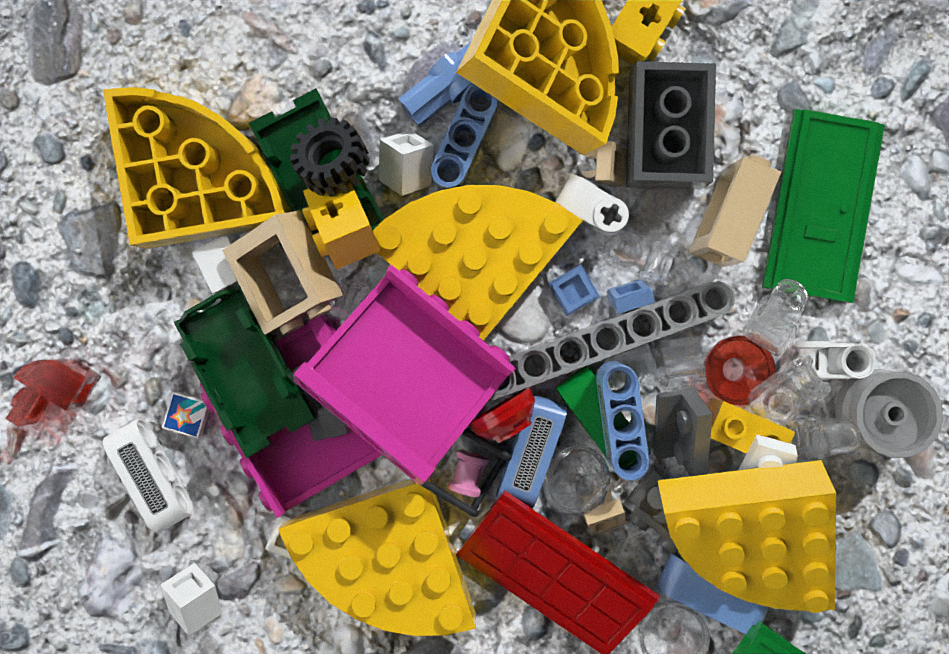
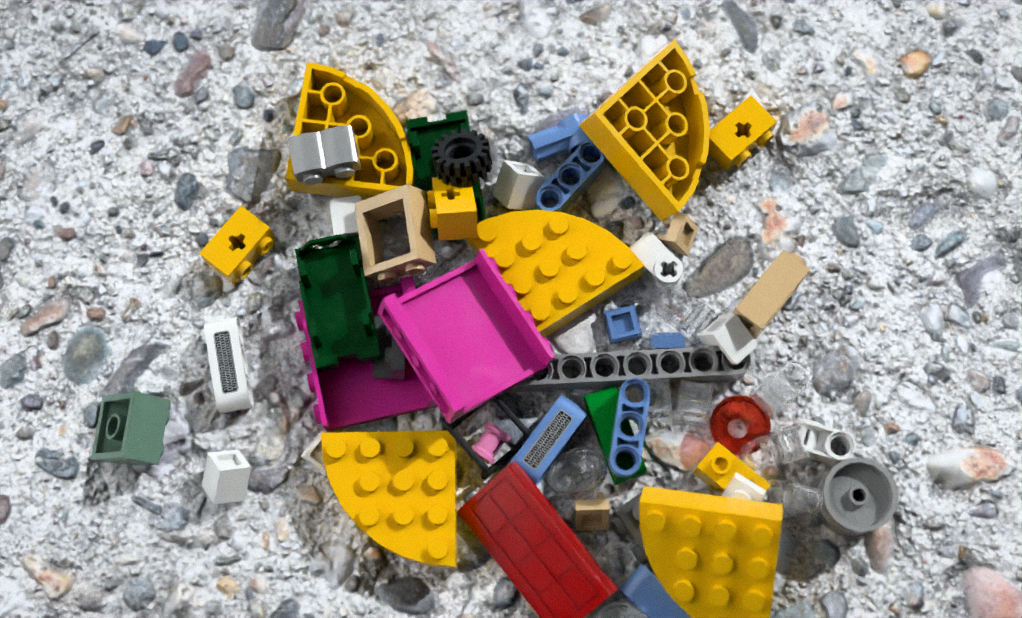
camera: 20 degrees right, 15 degrees down
(50, 380) = (180, 265): clear red brick -> none
(68, 582) = (131, 429): none -> sand green slope
(92, 347) = (241, 230): none -> yellow brick
(164, 205) = (324, 154): none -> light grey brick
(186, 415) = (275, 328): tile -> none
(506, 417) = (534, 396): red piece -> none
(671, 125) = (736, 217): dark grey brick -> none
(683, 429) = (676, 455): dark grey bracket -> none
(702, 274) = (730, 336): none -> white panel
(824, 204) = (849, 318): green piece -> none

